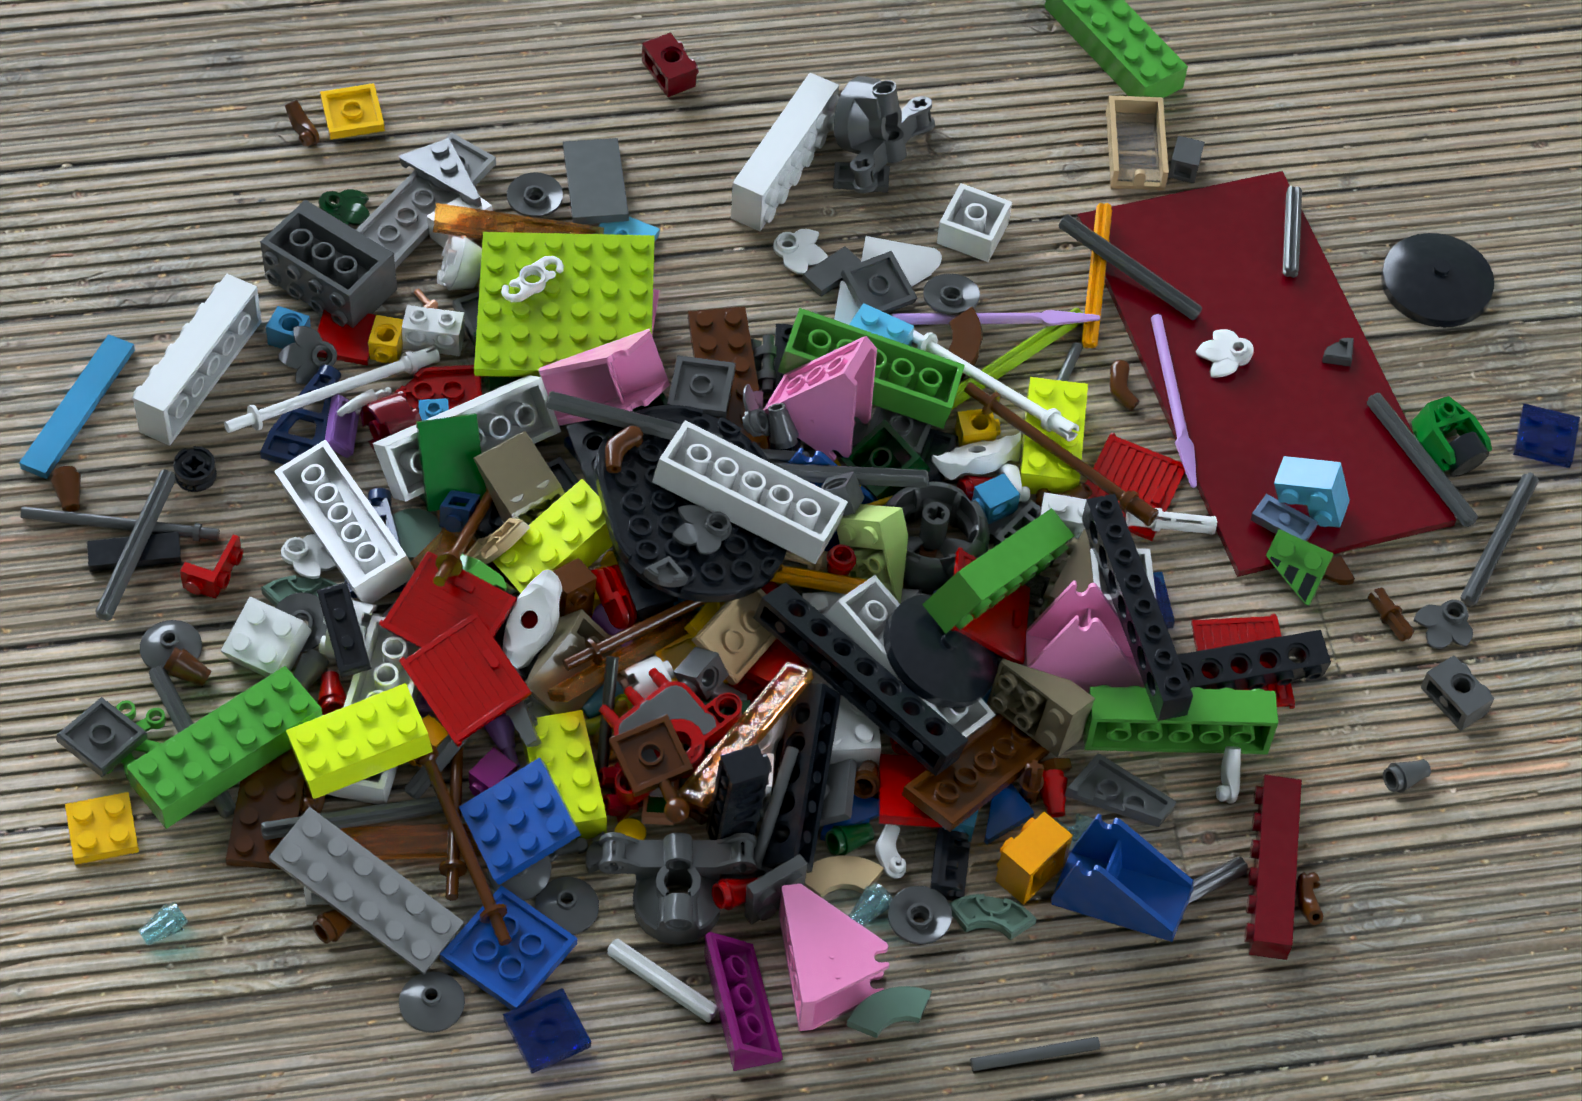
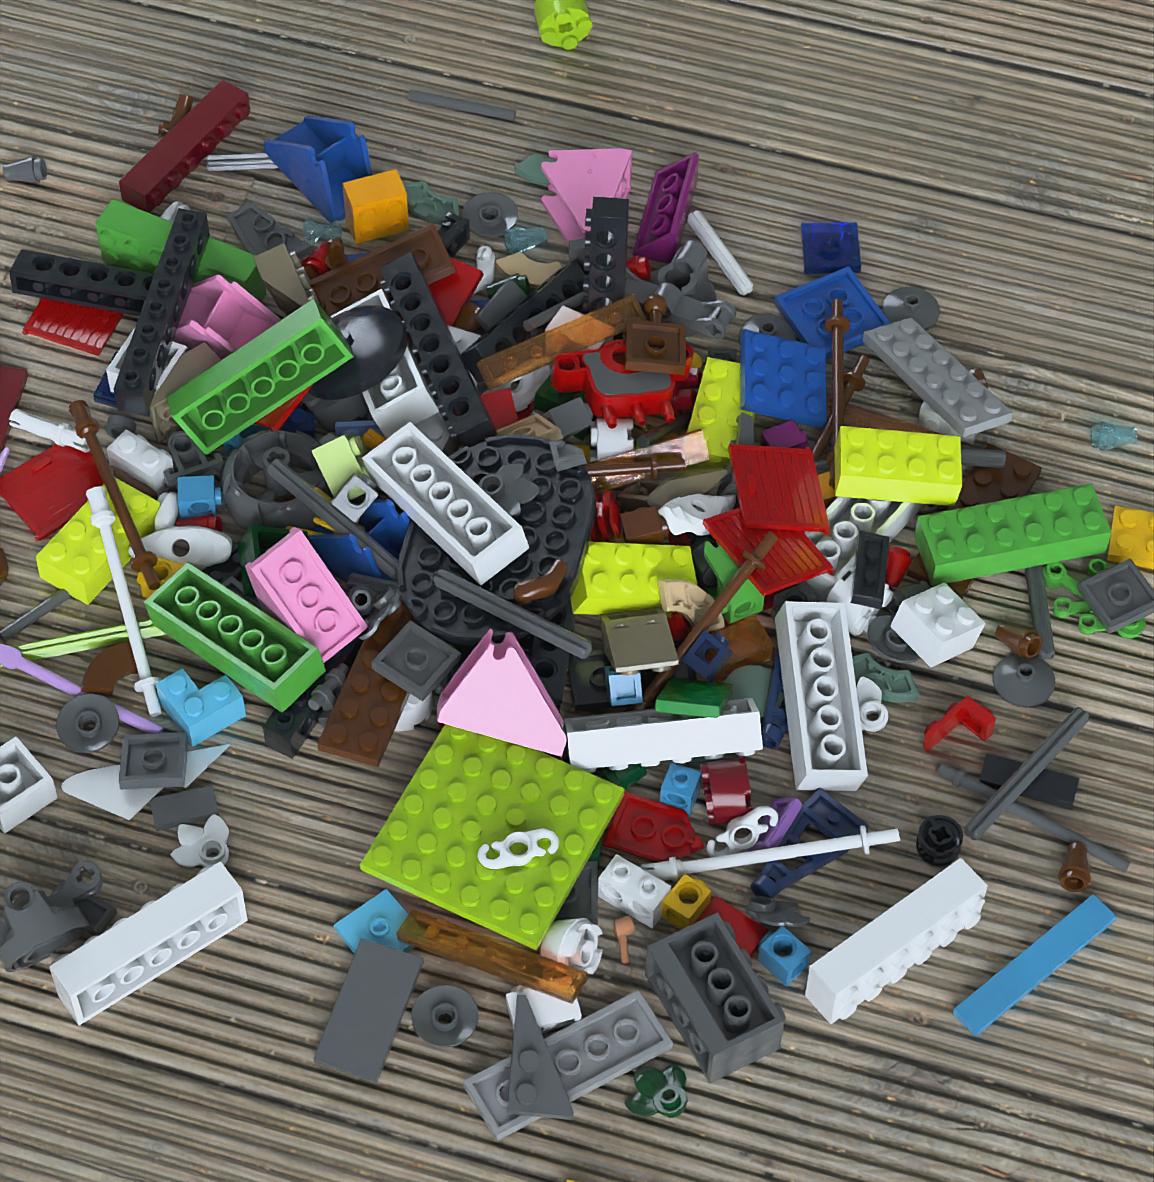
camera: 150 degrees left, 0 degrees up
(669, 64) = (205, 1149): dark red brick -> none

